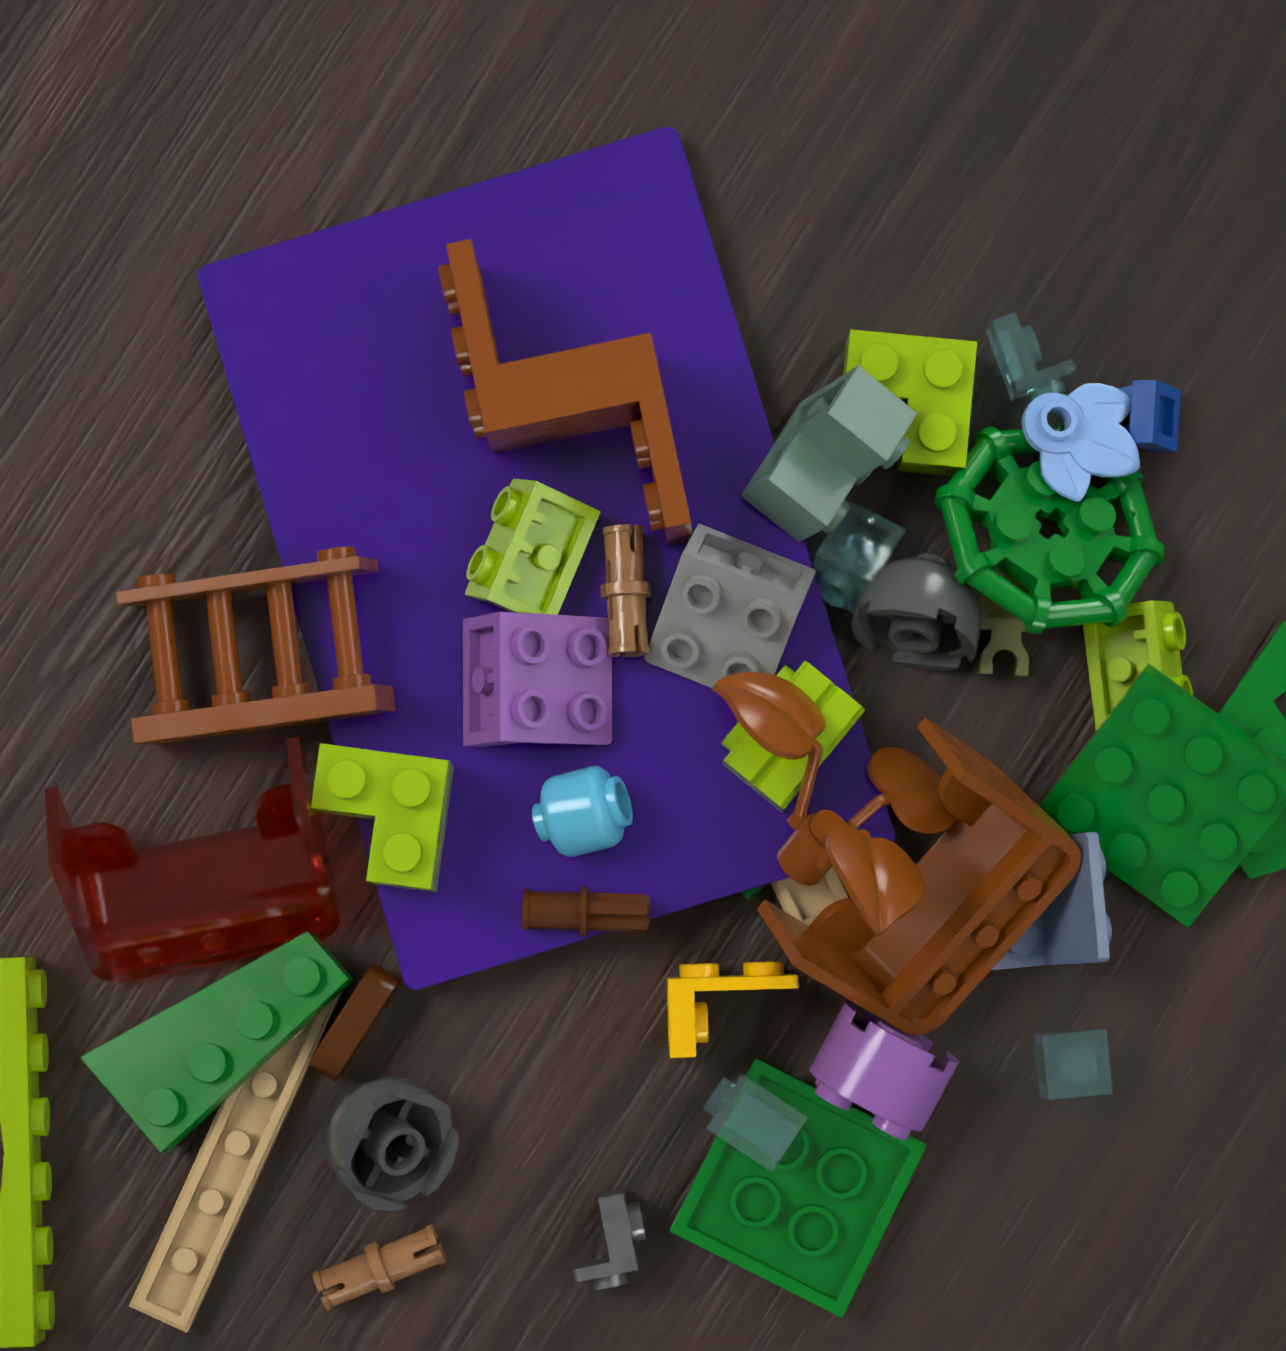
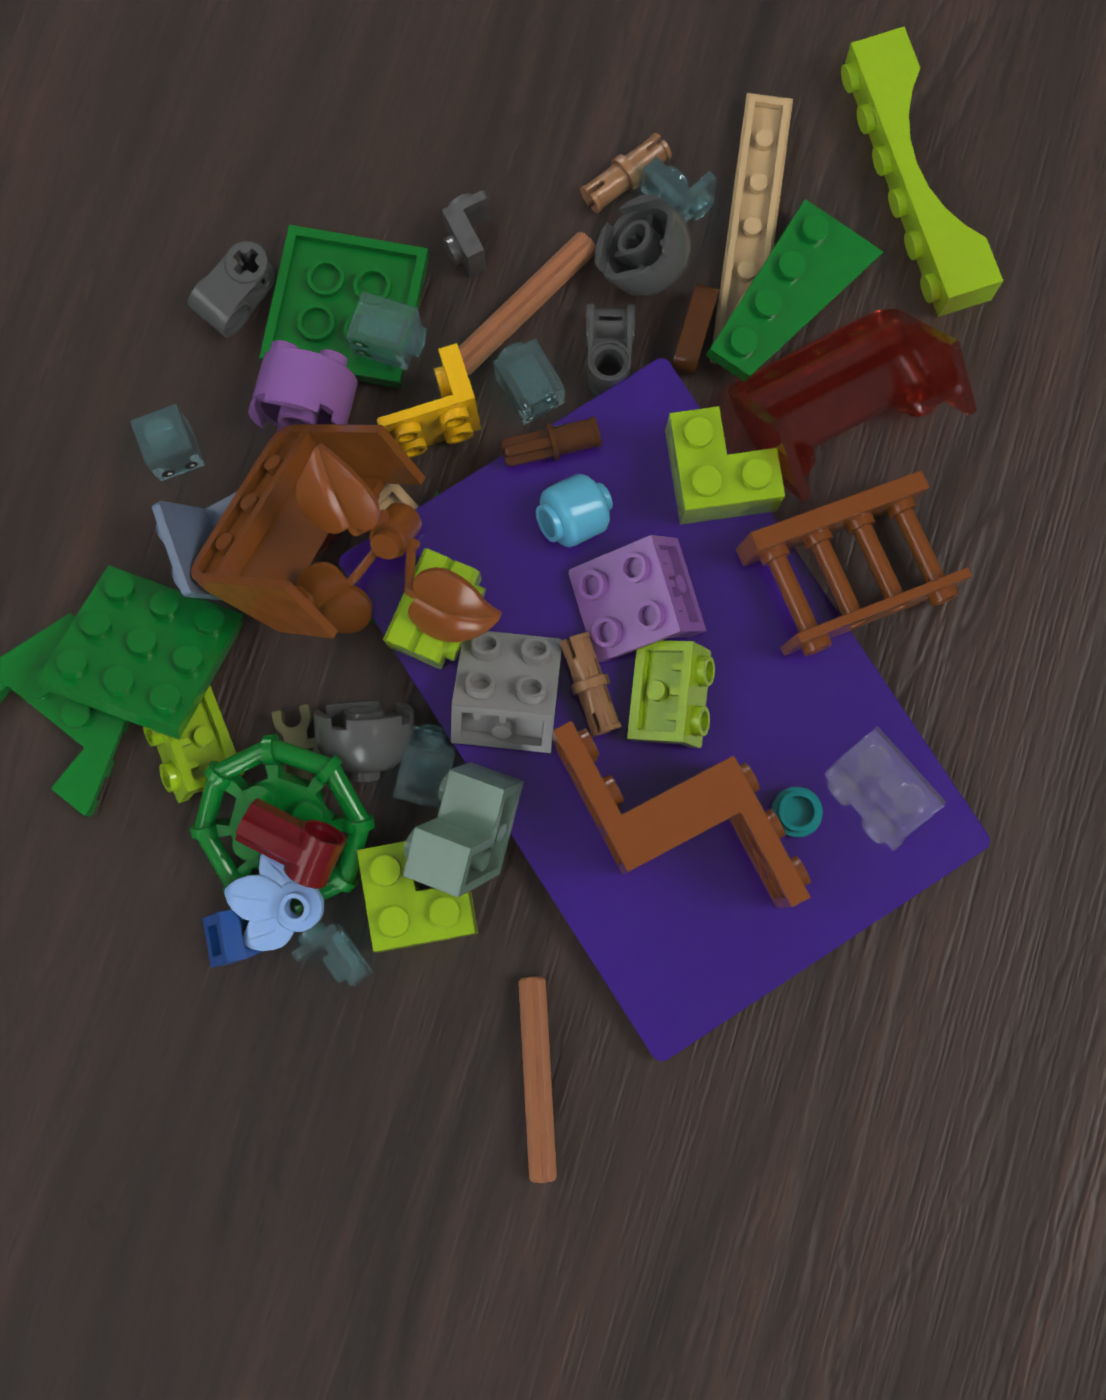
camera: 165 degrees right, 5 degrees down
(311, 363) = (883, 789): none -> clear bracket
(331, 1221) = (674, 188): none -> clear light blue bracket
(421, 368) = (798, 811): none -> teal plate
(470, 1035) = (609, 342): none -> dark grey piece
(564, 1126) = (526, 301): none -> nougat axle
(589, 1016) = (528, 380): none -> clear light blue brick
(823, 150) = (537, 1079): none -> nougat axle
(948, 1243) = (229, 292): none -> dark grey piece
(1027, 481) = (304, 848): none -> dark red piece

